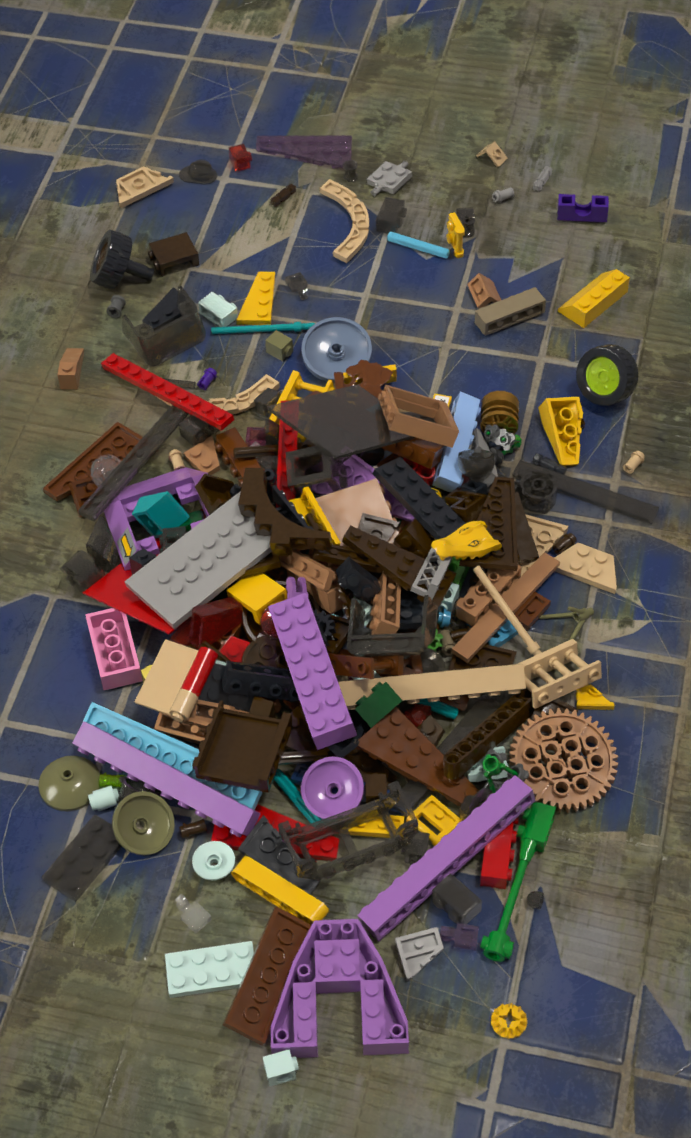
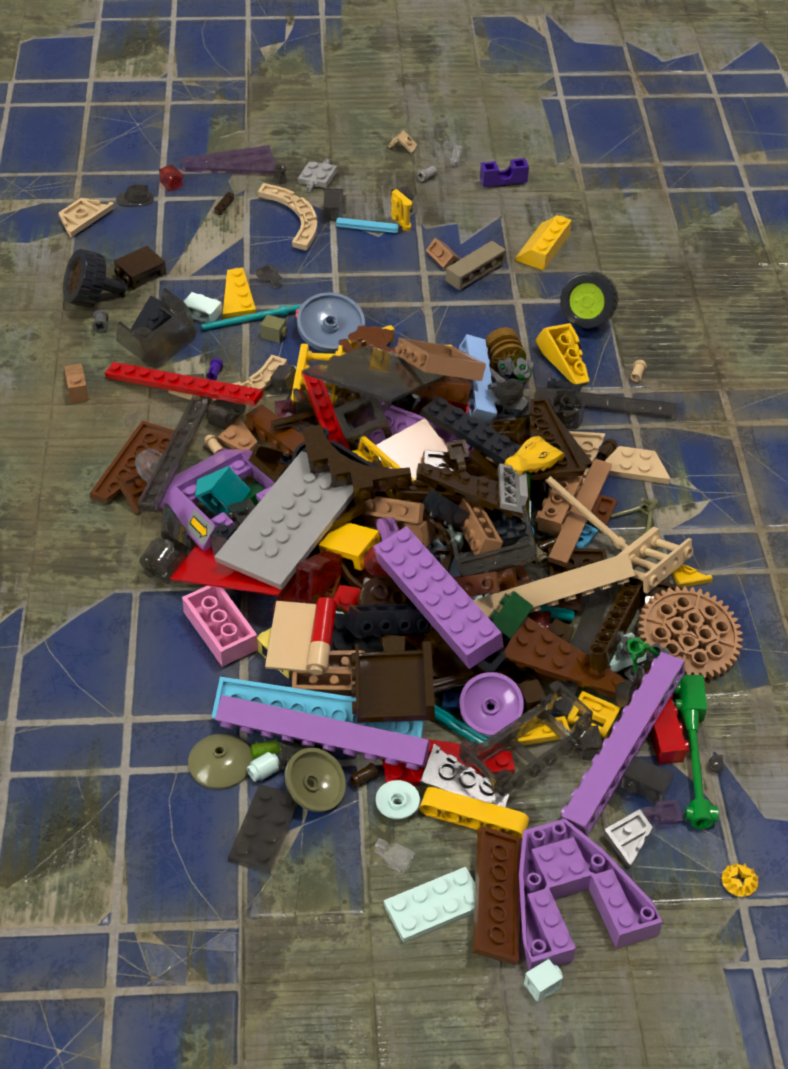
camera: 20 degrees left, 5 degrees down
(394, 522) = (458, 453): none -> dark brown plate

